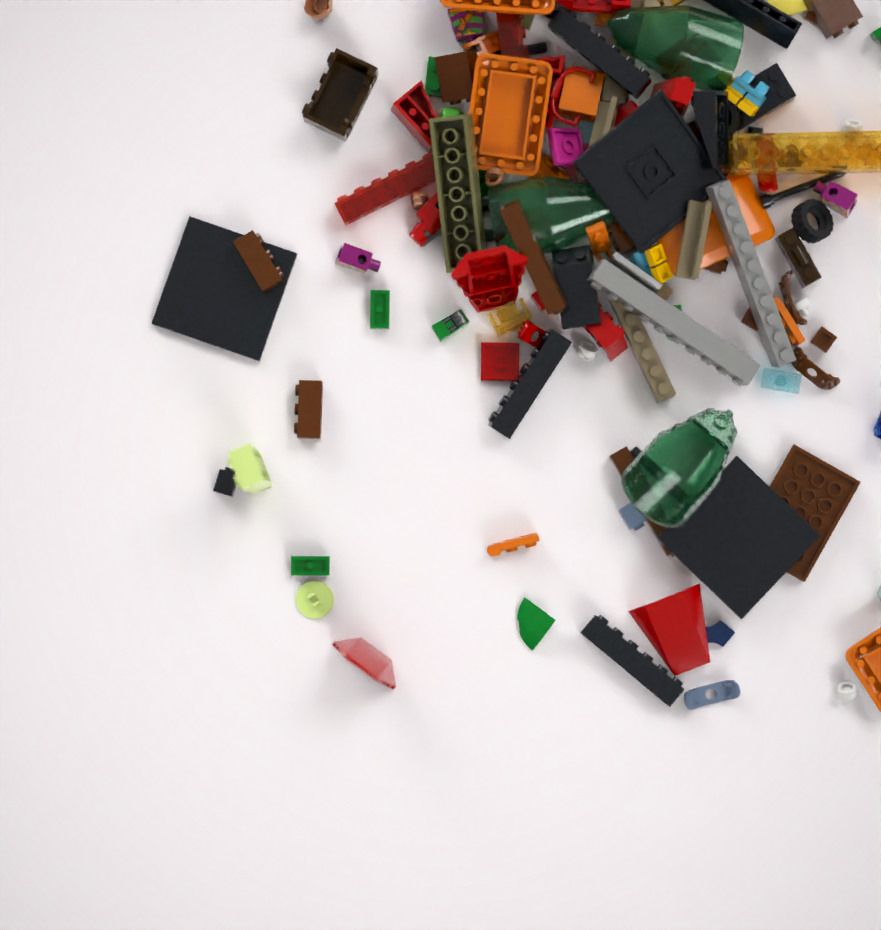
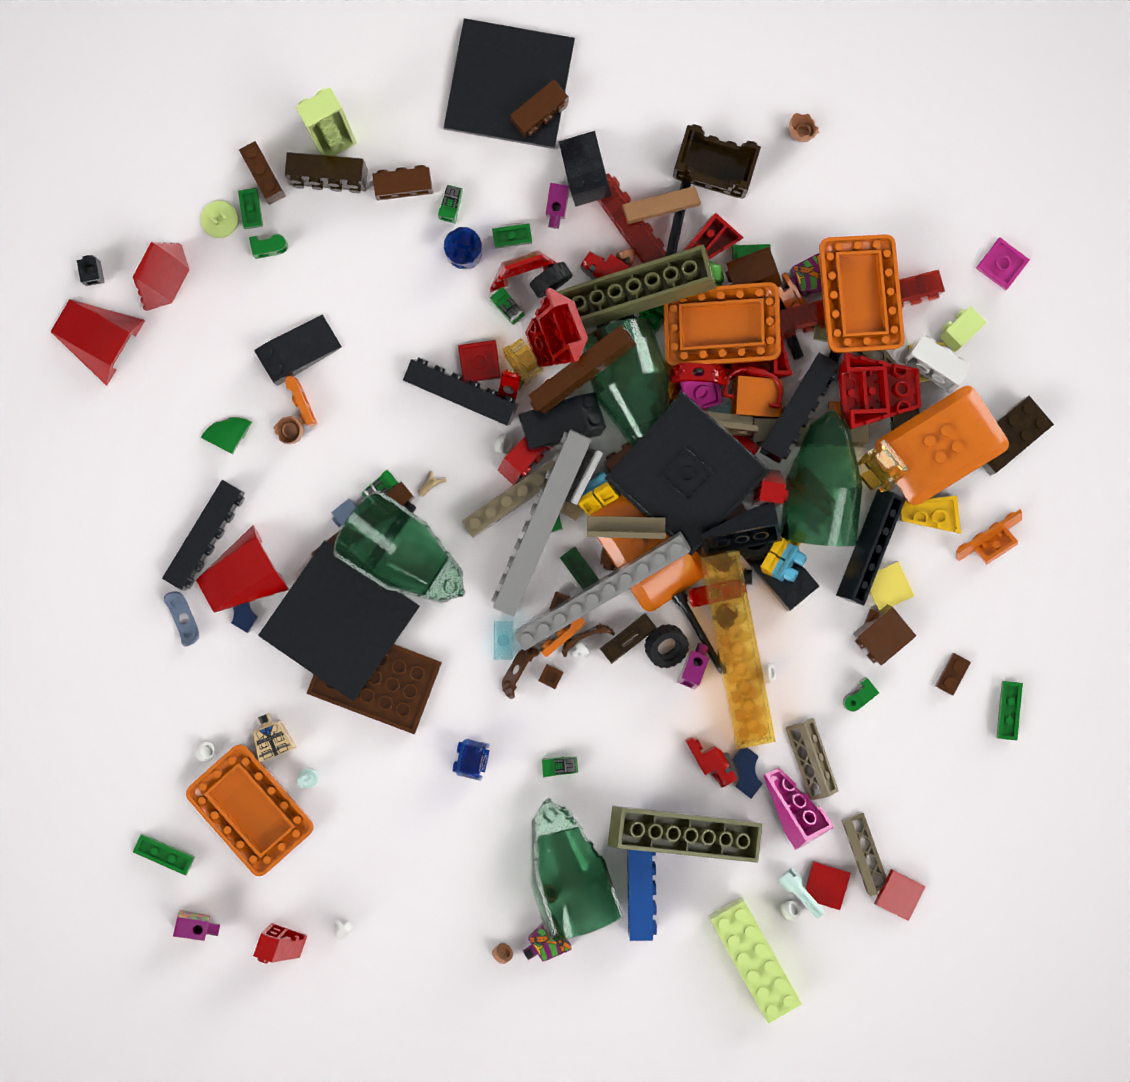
camera: 75 degrees right, 0 degrees up
(276, 548) = (262, 172): none -> reddish brown brick
(288, 482) = (326, 172): none -> dark brown brick
(325, 225) = (585, 168): none -> black slope
(337, 365) = (450, 204): none -> leg
(353, 560) = (268, 247): none -> green leg
(356, 732) = (93, 278): none -> black brick
(375, 156) = (661, 205): none -> medium nougat tile
(386, 358) = (463, 248): none -> clear blue brick
(393, 143) = (676, 226): none -> black axle
(413, 740) = (95, 335): none -> red wedge
(415, 304) = (518, 266): none -> red wedge
(432, 276) = (552, 277): none -> black tyre
(460, 538) = (297, 349): none -> black slope
(493, 176) = (658, 323): nougat tile -> none
(540, 559) = (289, 430): none -> nougat hair
(548, 159) = (684, 372): none -> red piece
(599, 240) = (612, 436): orange hinge -> none
(610, 478) = (383, 484): none -> green leg
(613, 428) = (431, 482): none -> tan bar
(722, 294) = (579, 568): none -> dark green plate
(844, 622) = (272, 739): none -> torso

